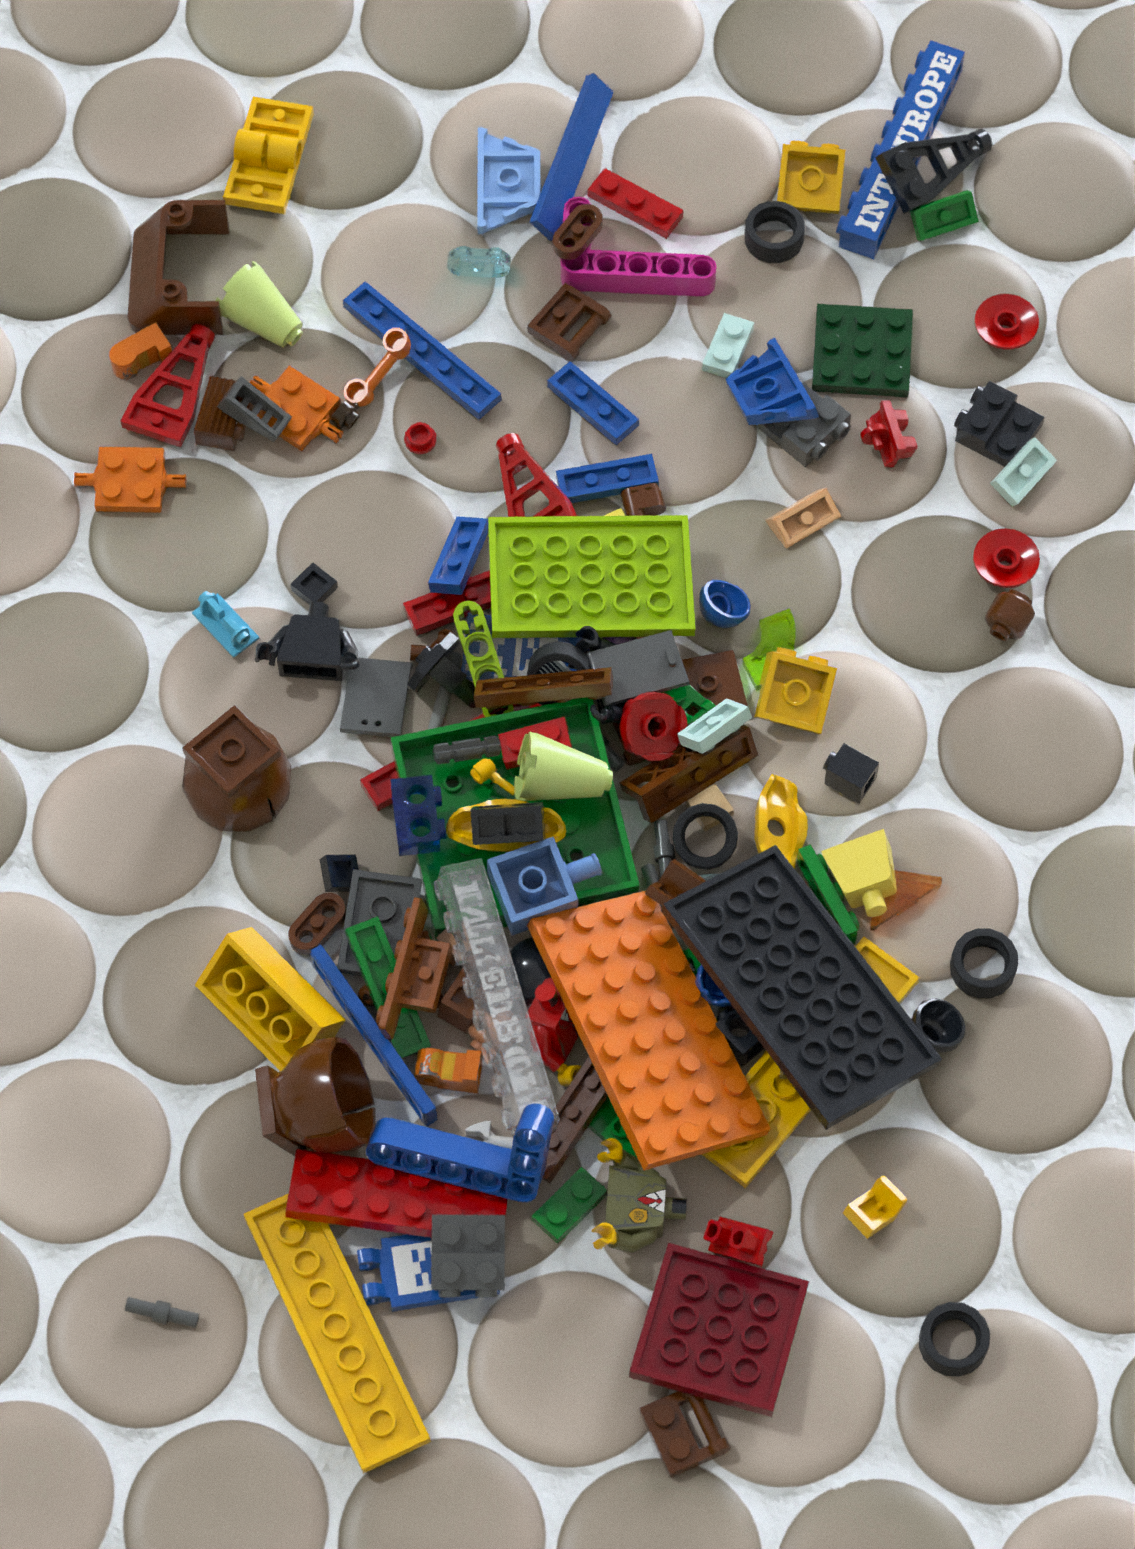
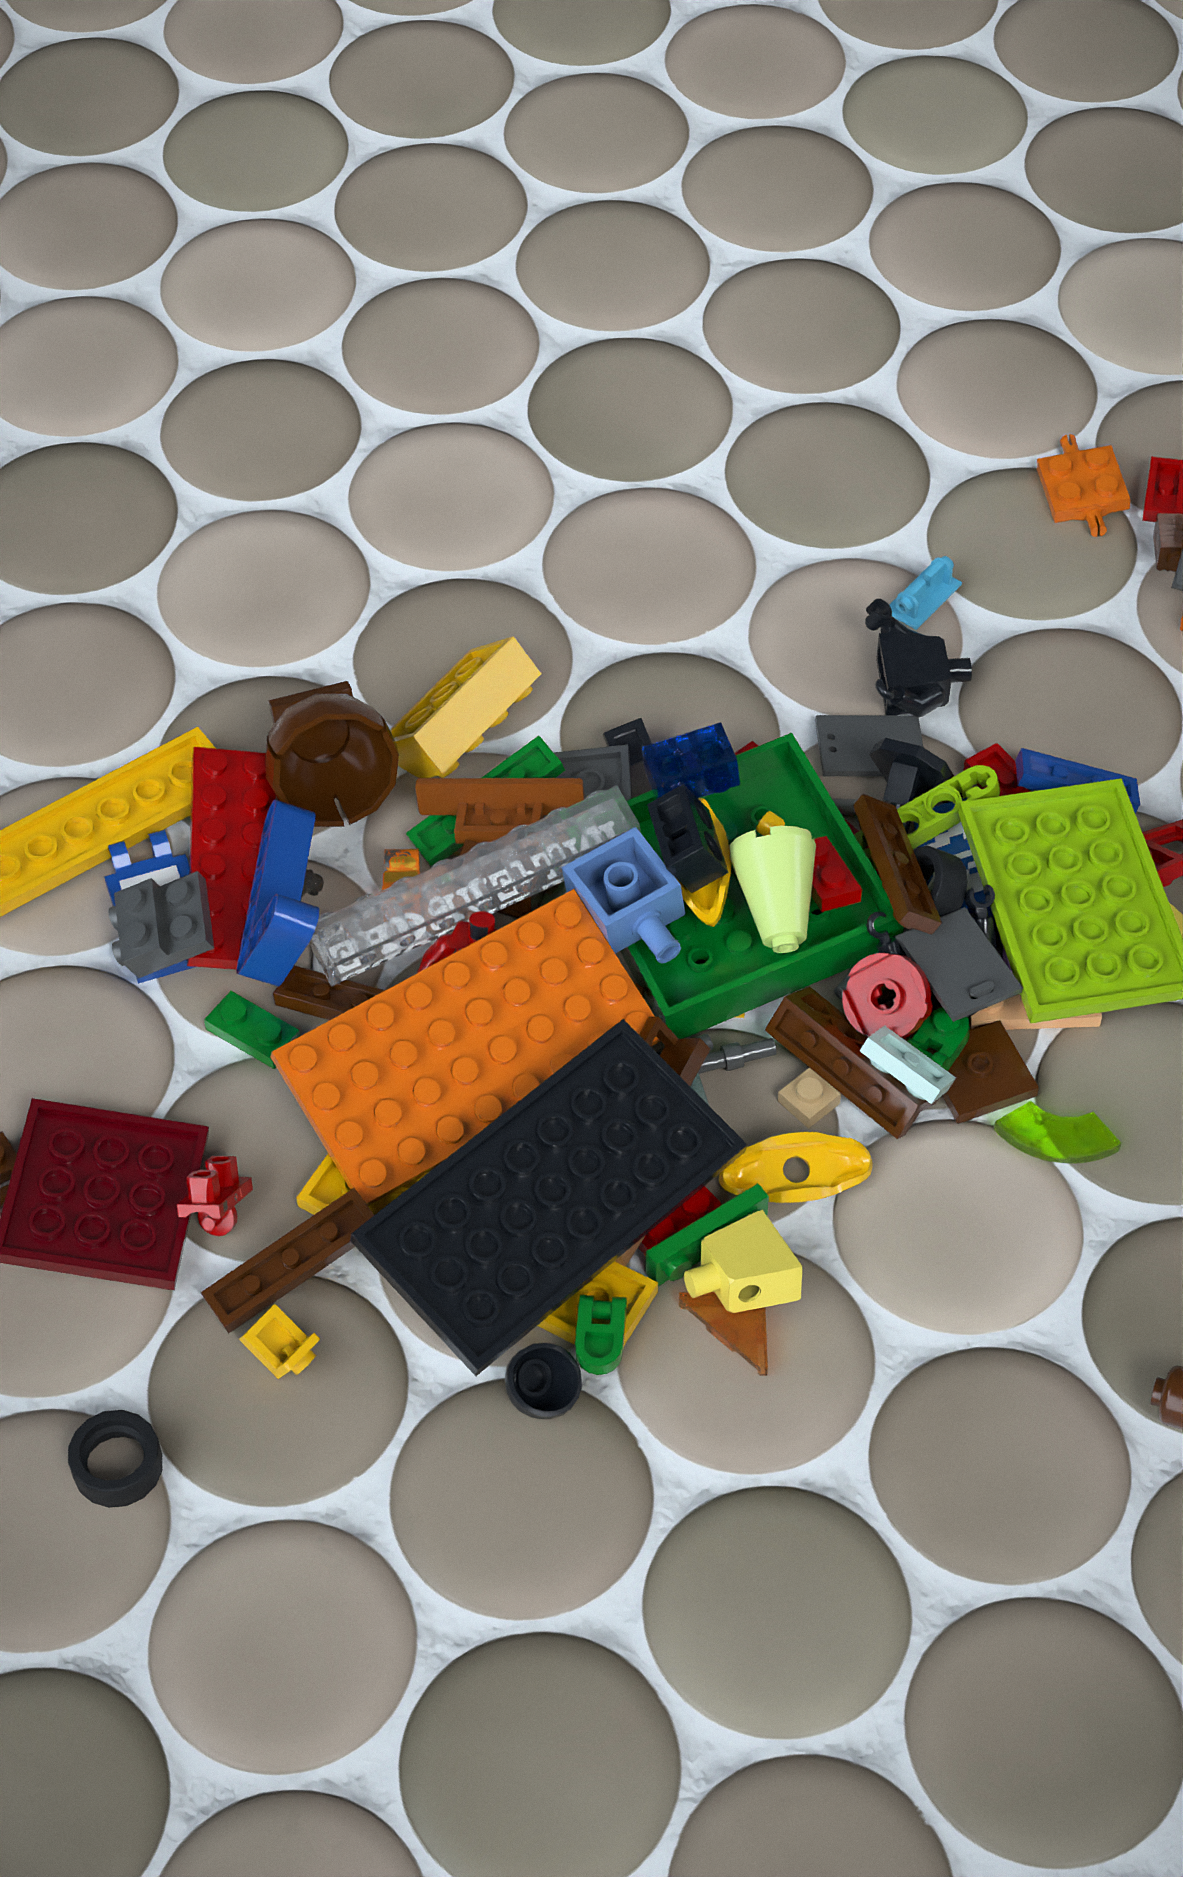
camera: 80 degrees right, 10 degrees down
(162, 1312) = (83, 685): dark grey bar -> none
(234, 773) = (731, 621): reddish brown plate -> none
(314, 584) = (997, 662): black plate -> none
(316, 925) = (563, 731): reddish brown plate -> none
(373, 1036) = (368, 851): blue tile -> none
(466, 749) = (794, 803): dark grey axle -> none
(634, 1202) = (243, 1088): olive torso -> none
(717, 813) = (744, 1062): black tyre -> none
(723, 604) = (1098, 1061): blue piece -> none
(795, 690) = (994, 1156): yellow plate -> none
(806, 1191) = (287, 1261): none -> reddish brown plate
(850, 772) = (889, 1235): black brick -> none
(921, 978) = (600, 1345): none -> green plate
(984, 938) = (658, 1399): black tyre -> none

